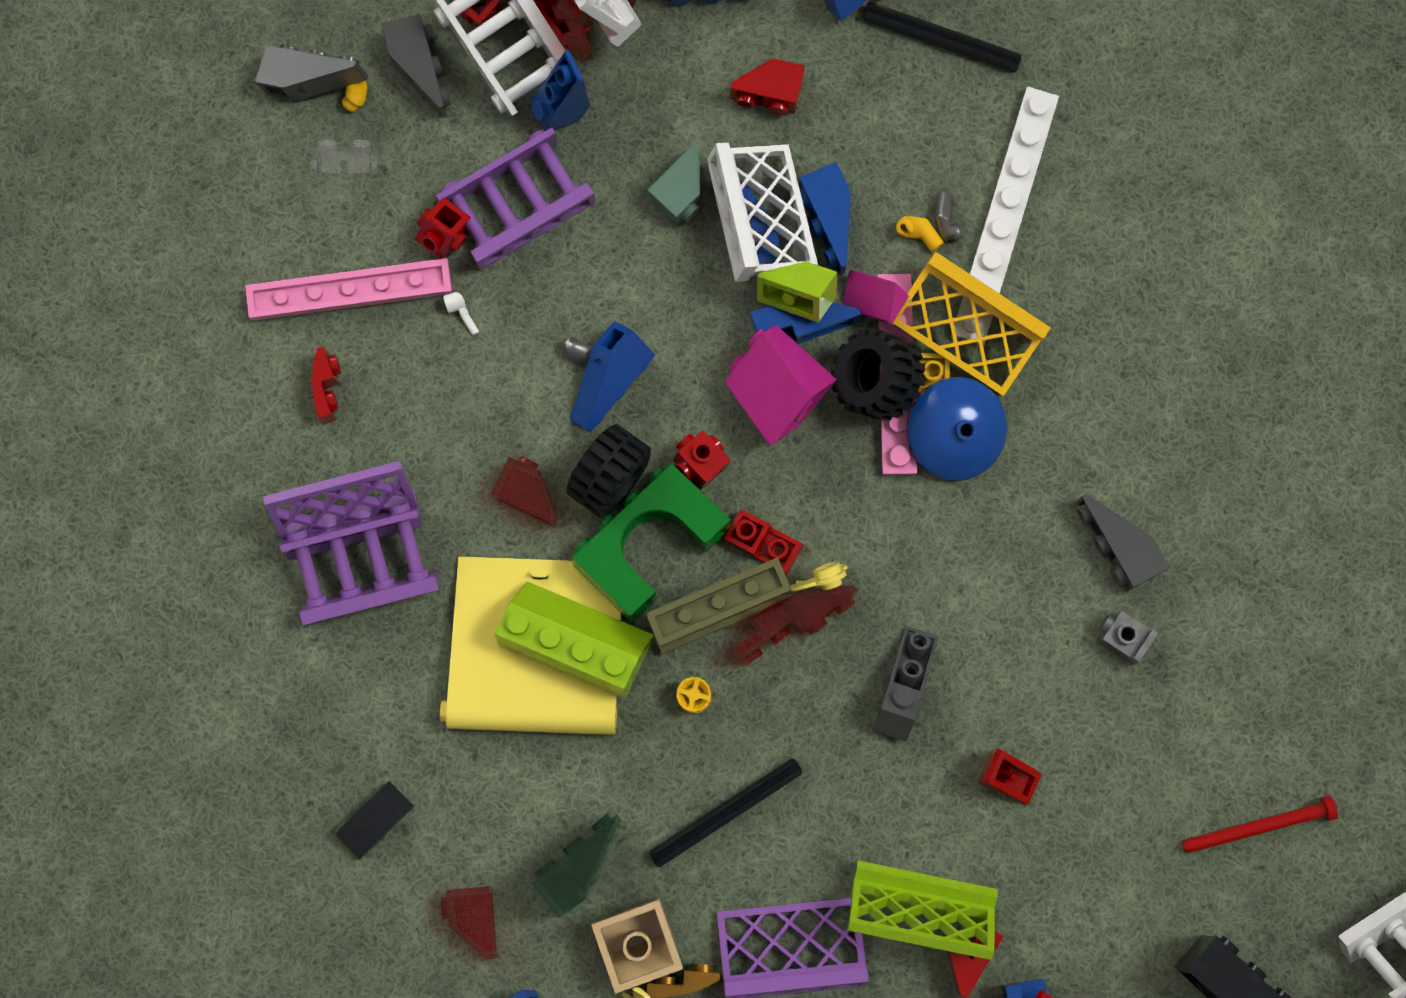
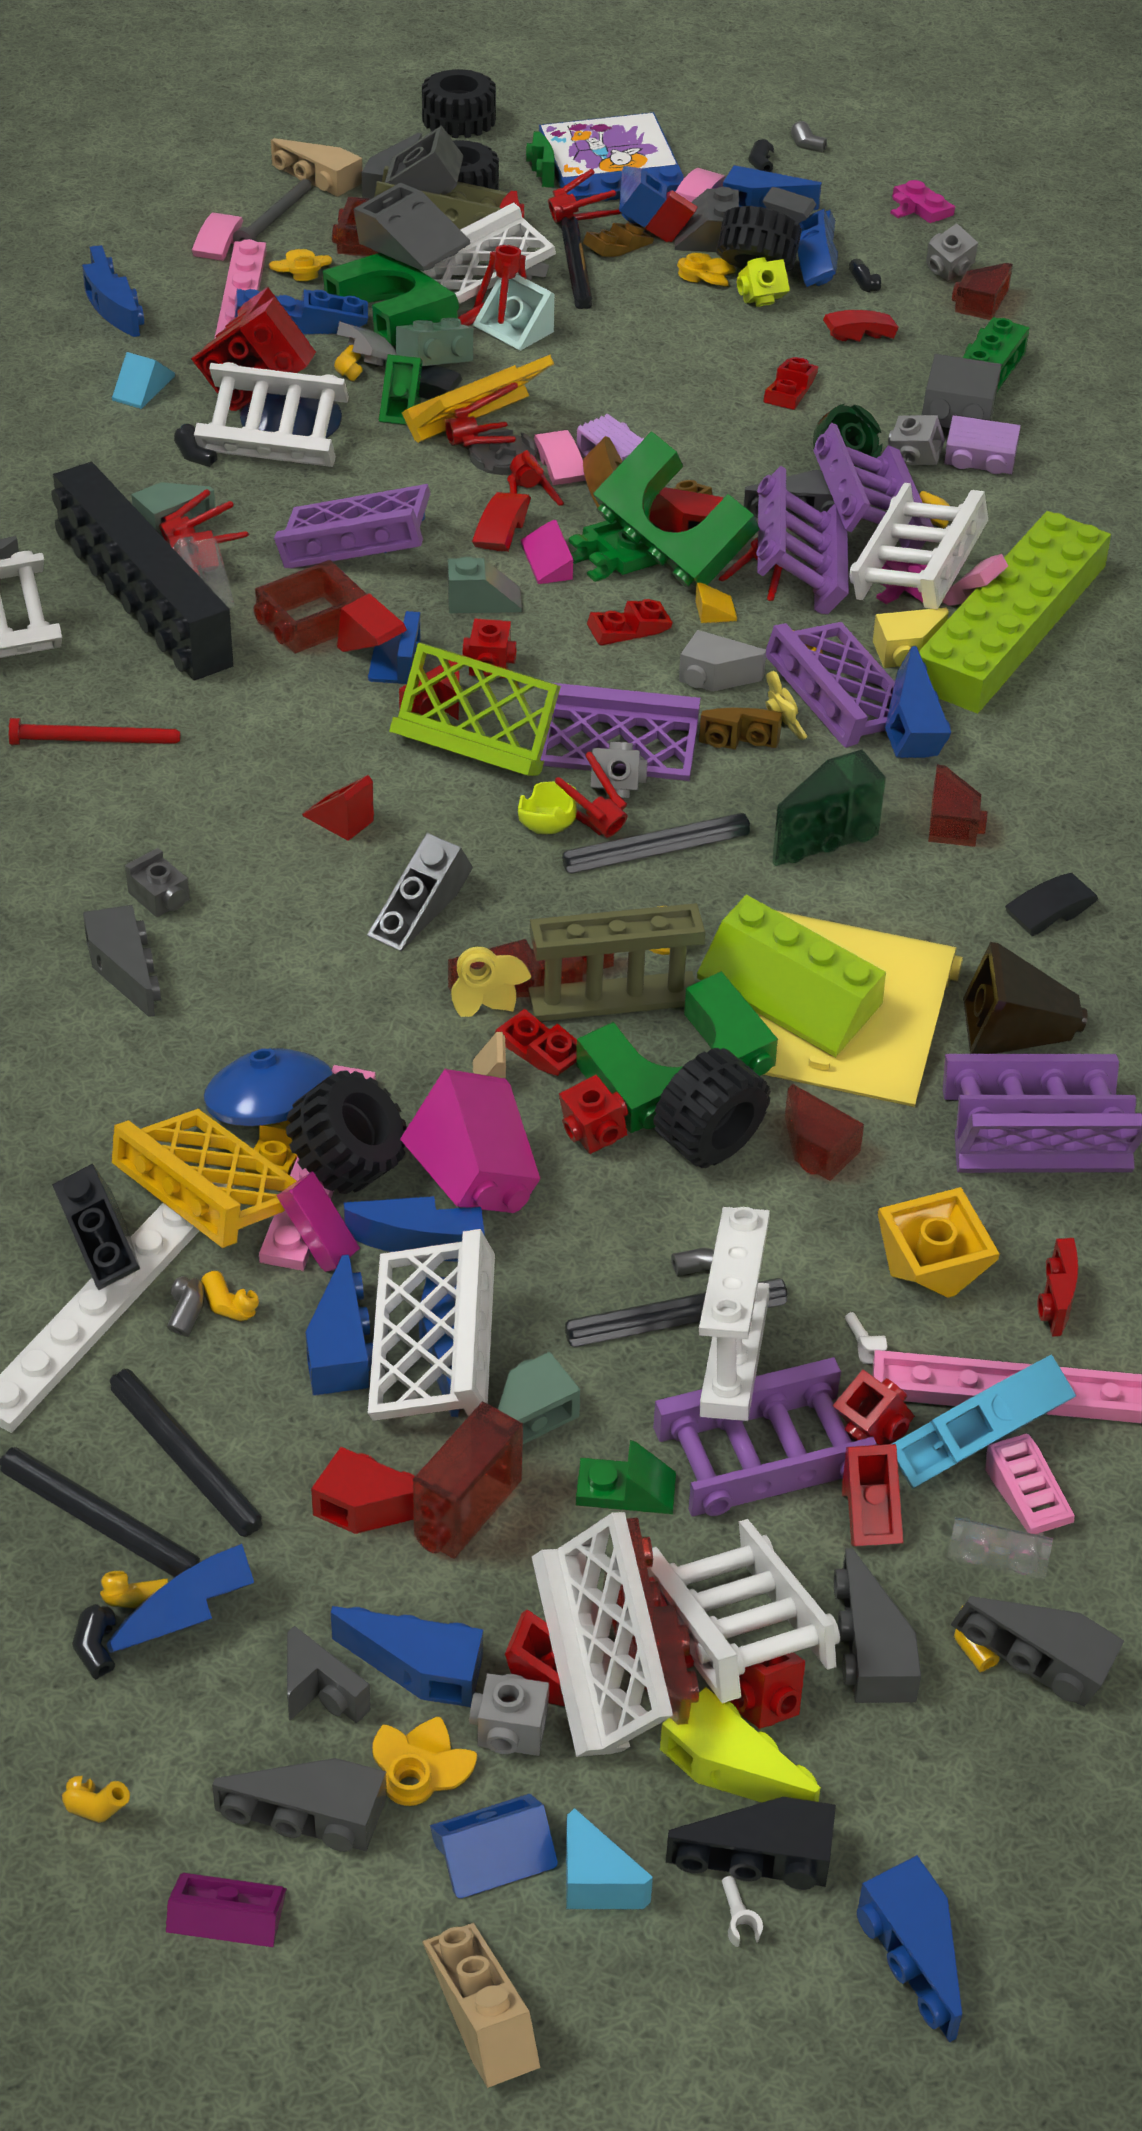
camera: 170 degrees left, 35 degrees down
(345, 226) = (1021, 1457): none -> bright pink slope
(357, 237) = (982, 1420): none -> medium azure slope
(387, 664) = (1018, 1006): none -> dark brown slope
(418, 391) = (936, 1241): none -> yellow slope
(433, 161) = (873, 1494): none -> red slope
(548, 244) = (734, 1313): none -> white fence
(562, 96) = (670, 1507): blue slope -> none
(599, 301) = (650, 1317): none -> black axle
(601, 145) = (634, 1485): none -> green slope
(610, 370) = (682, 1220): blue slope -> none
(637, 945) = (779, 751): tan slope -> none
(703, 94) = (467, 1480): none -> clear red window
(775, 822) = (604, 815): none -> red plant
(779, 884) = (620, 754): none -> light grey brick
(796, 504) = (492, 1058): none -> tan slope
(798, 289) = (406, 1222): lime slope -> none
(827, 806) = (547, 809): none -> neon yellow hair
(904, 98) = (186, 1453): none -> black axle
(1029, 251) = (97, 1226): none -> black slope

